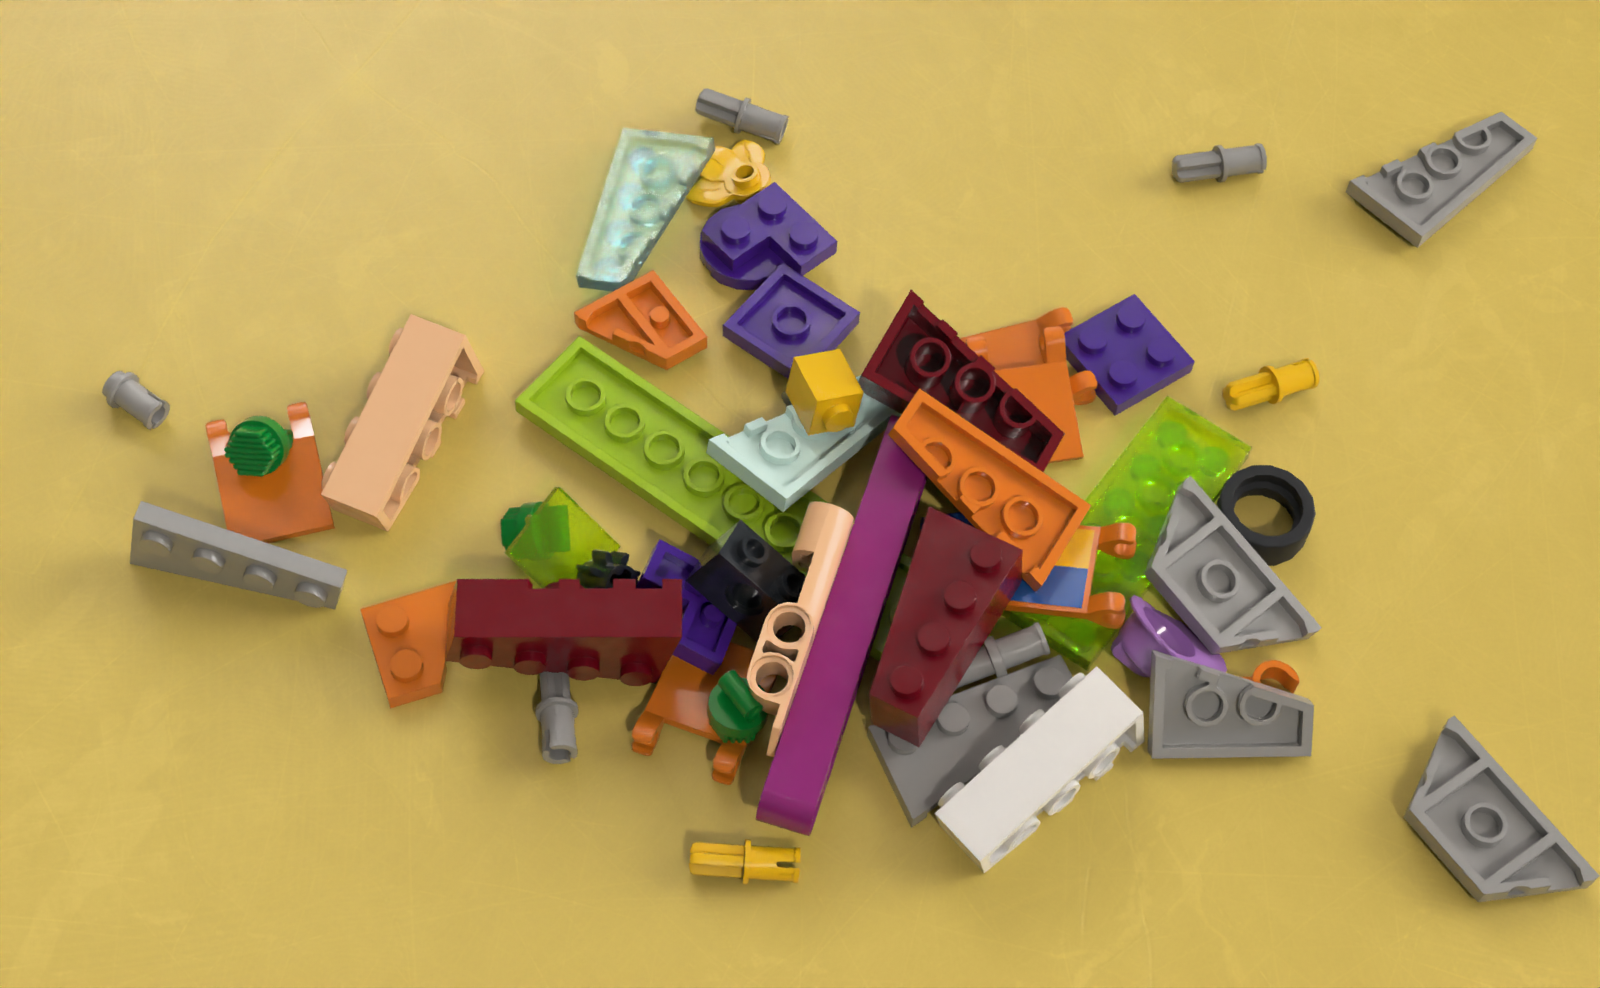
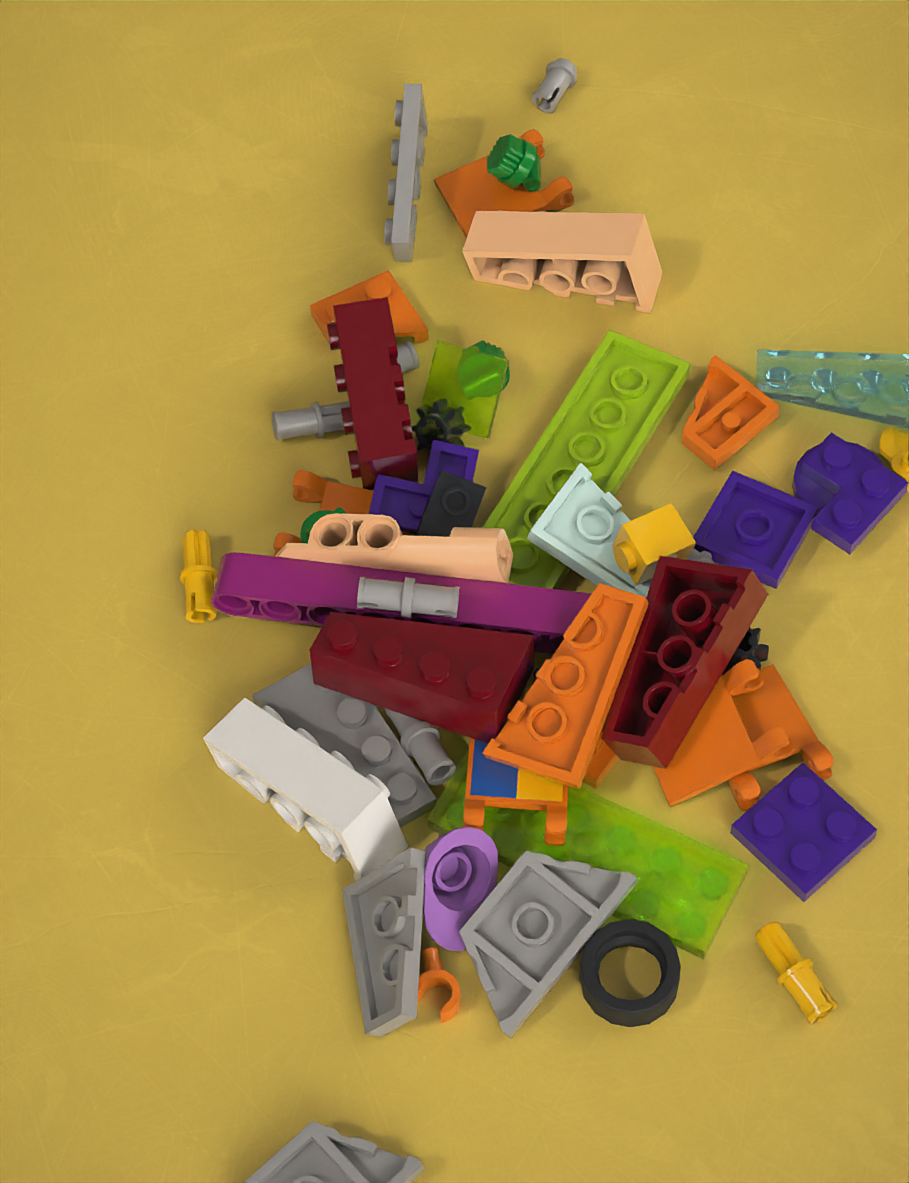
camera: 90 degrees right, 0 degrees up
(866, 613) = (408, 597): none -> light grey pin

